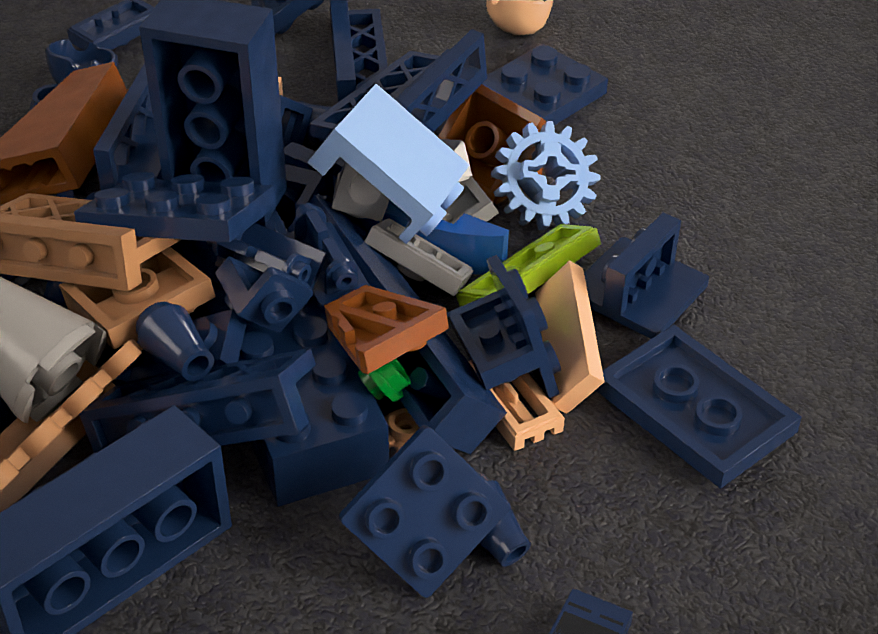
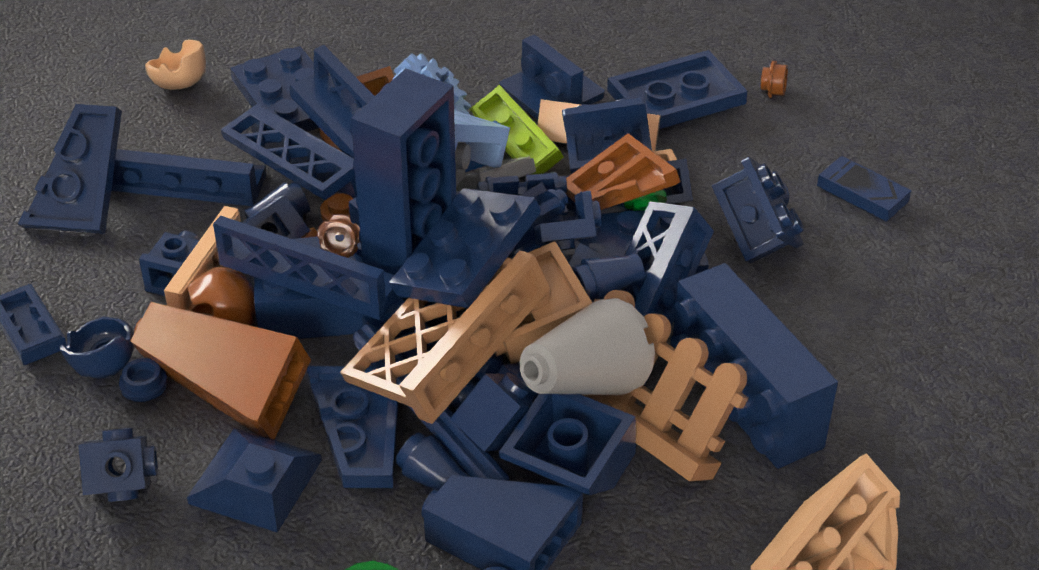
camera: 75 degrees left, 0 degrees up
(788, 510) = (774, 79): none -> dark orange plate

